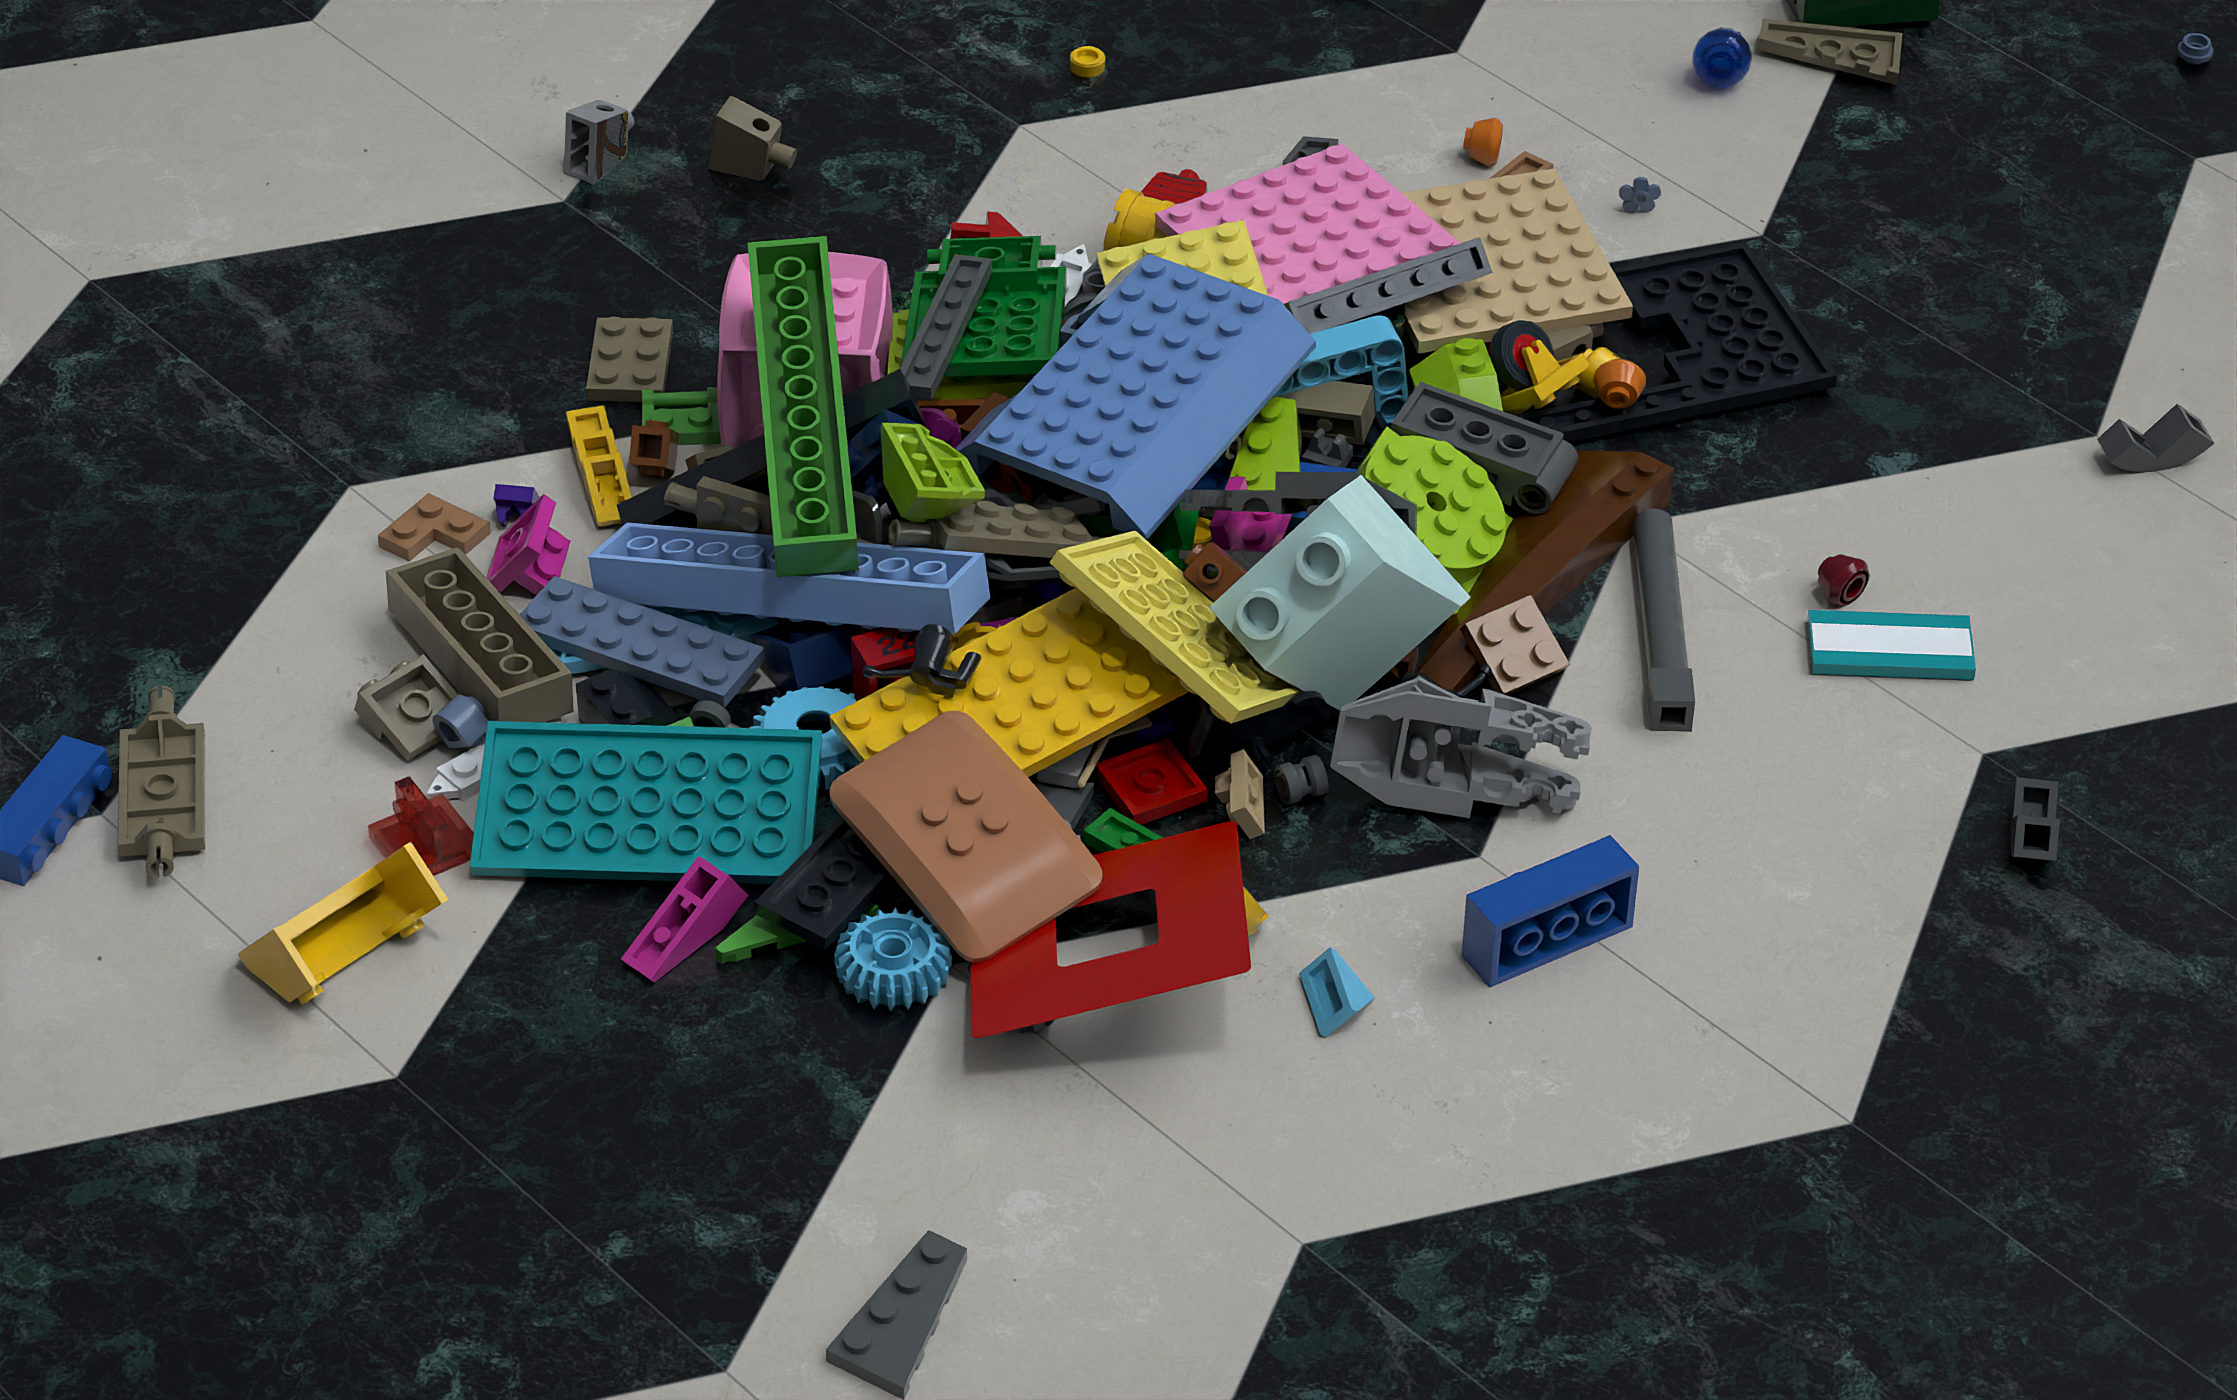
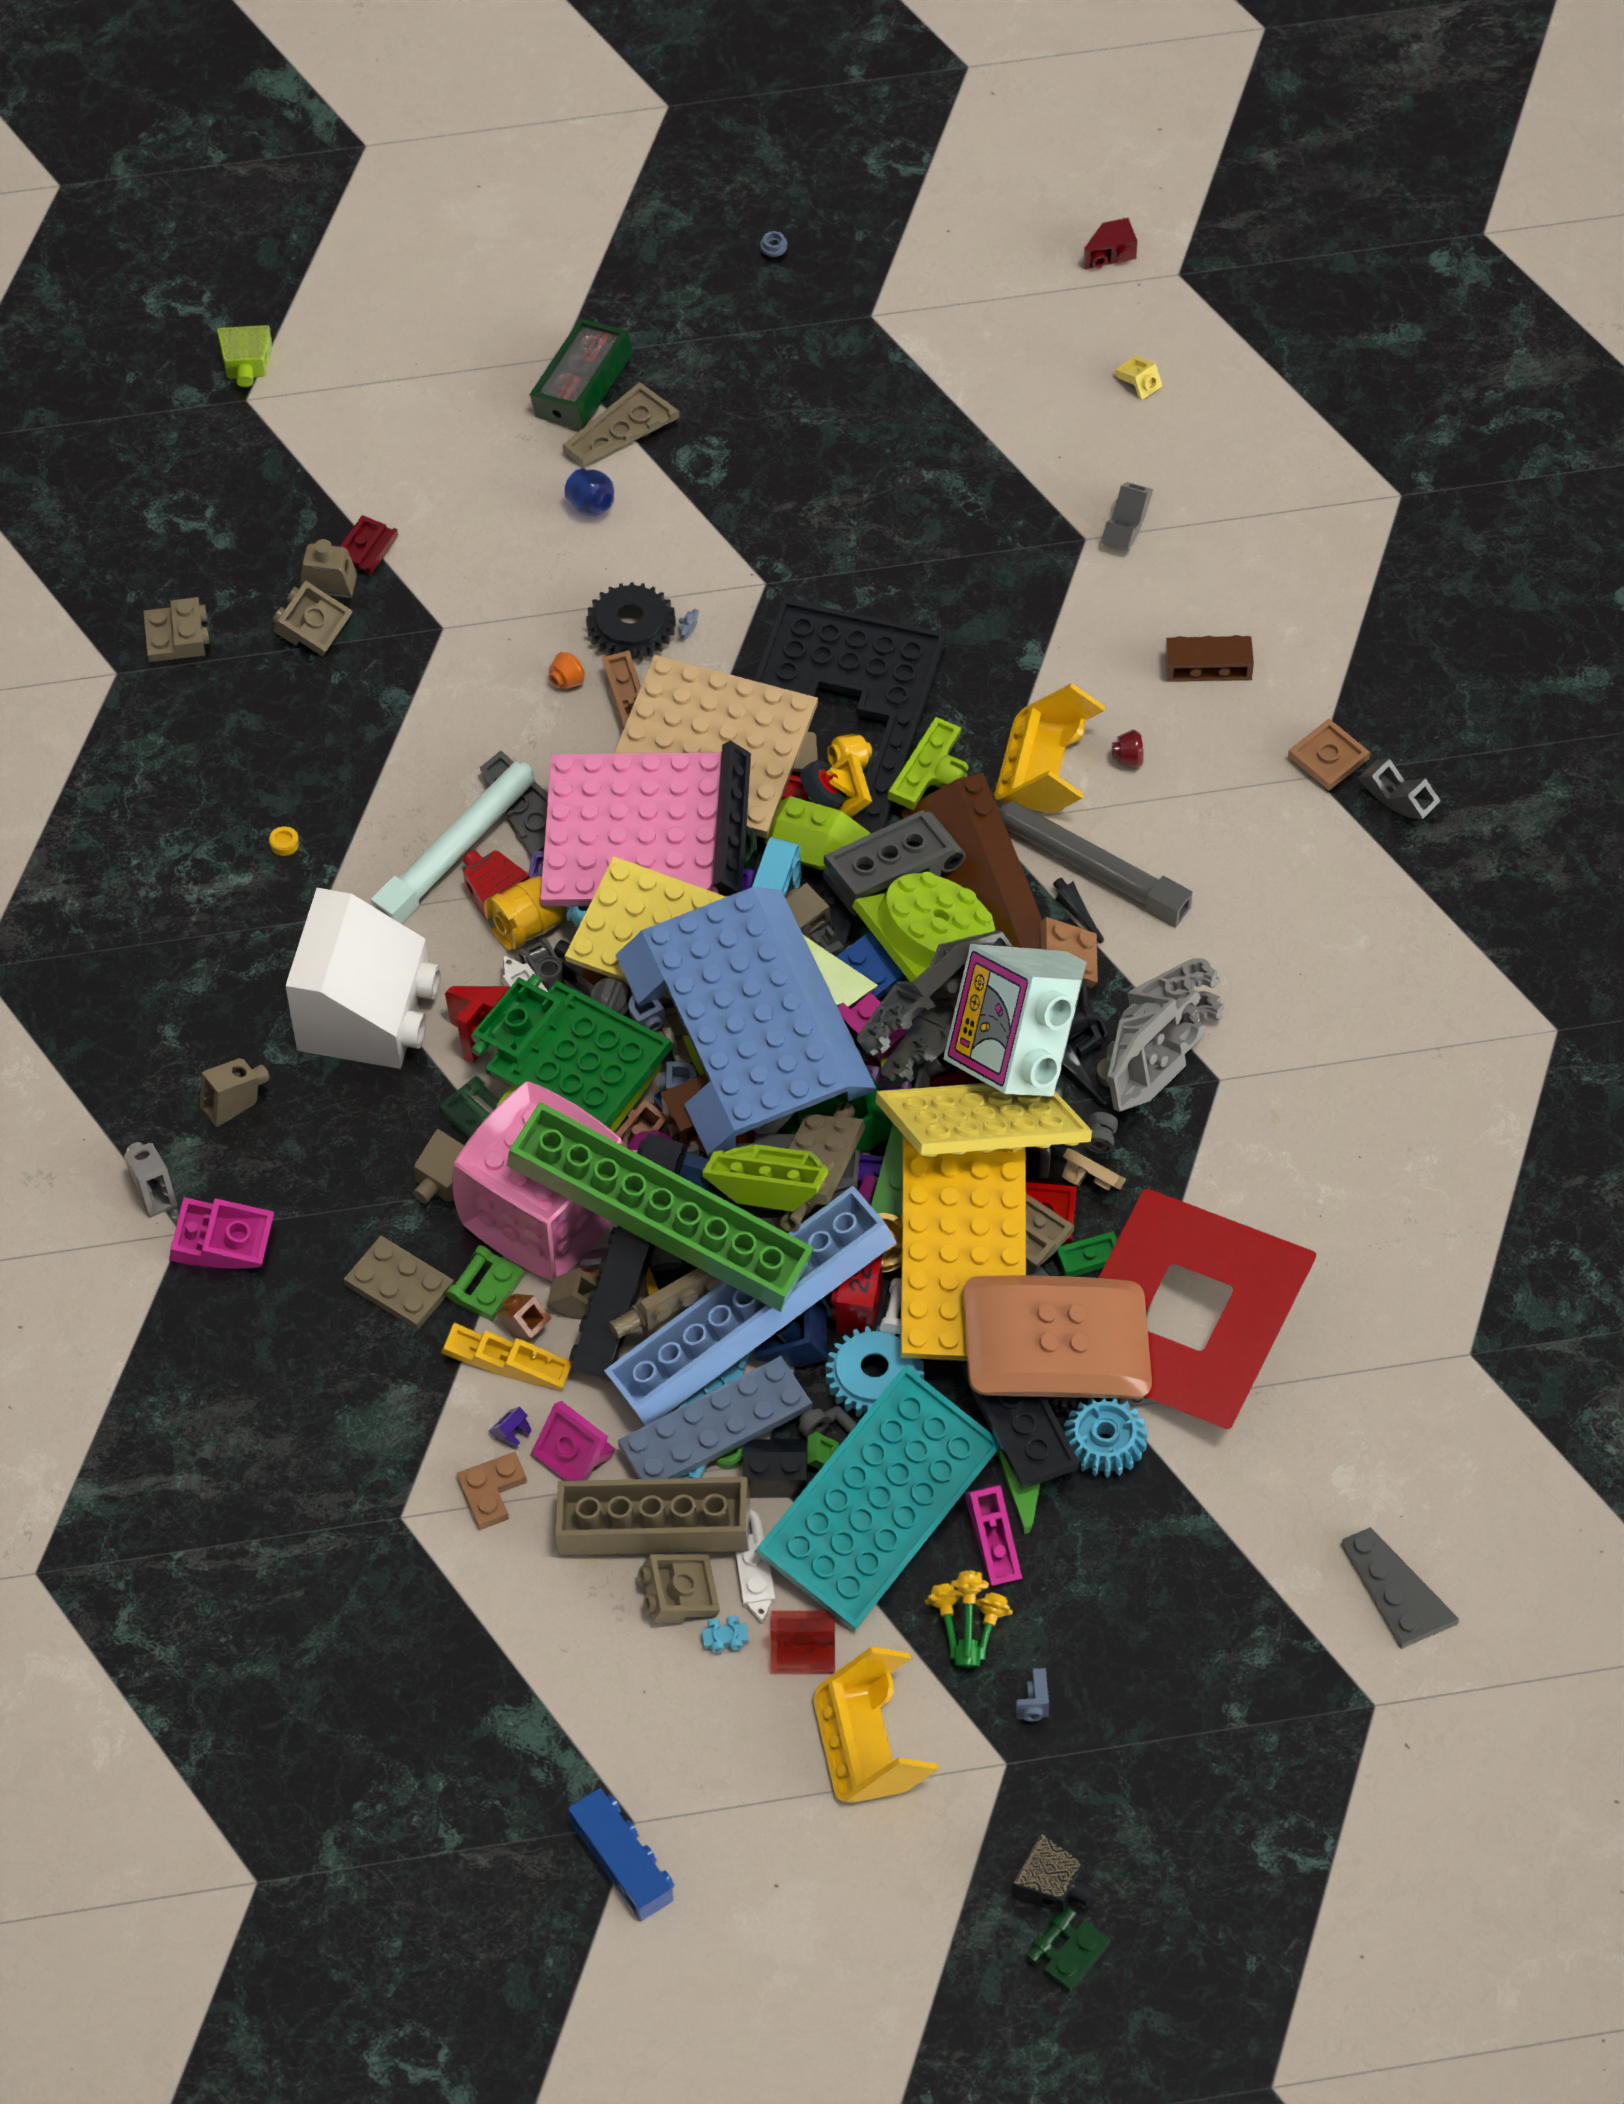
camera: 55 degrees left, 15 degrees up
(161, 786) = (646, 1773): dark tan plate -> none
(178, 1243) = (1075, 1956): none -> dark green plate
(262, 1167) = (1051, 1877): none -> black torso
(382, 772) = (724, 1637): none -> medium azure piece
(461, 722) = (723, 1564): sand blue plate -> none
(496, 1054) = (1037, 1703): none -> sand blue bracket
(561, 914) = (993, 1605): none -> plant
(575, 213) = (220, 1234): none -> dark pink slope
(931, 652) = (911, 1266): black piece -> none
(935, 140) = (358, 983): none -> white slope
(945, 324) = (589, 1083): dark grey plate -> none
(1090, 153) = (402, 894): none -> light aqua brick
(1108, 775) = (1044, 1232): none -> dark tan slope
(1198, 571) = (938, 1070): dark orange brick -> none
(1333, 991) = (1290, 1222): medium azure slope -> none
(1549, 910) = (1315, 1072): blue brick -> none
(1593, 172) = (639, 637): none -> black gear
(1593, 630) = (1071, 900): none -> black piece
(1619, 382) = (882, 751): orange cone -> none
(1650, 433) = (929, 765): none -> lime plate
(1764, 513) = (1038, 747): none -> yellow windscreen
(1891, 644) = (1195, 762): tile -> none
(2020, 743) = (1329, 754): none -> medium nougat plate
(2039, 589) = (1209, 658): none -> reddish brown brick

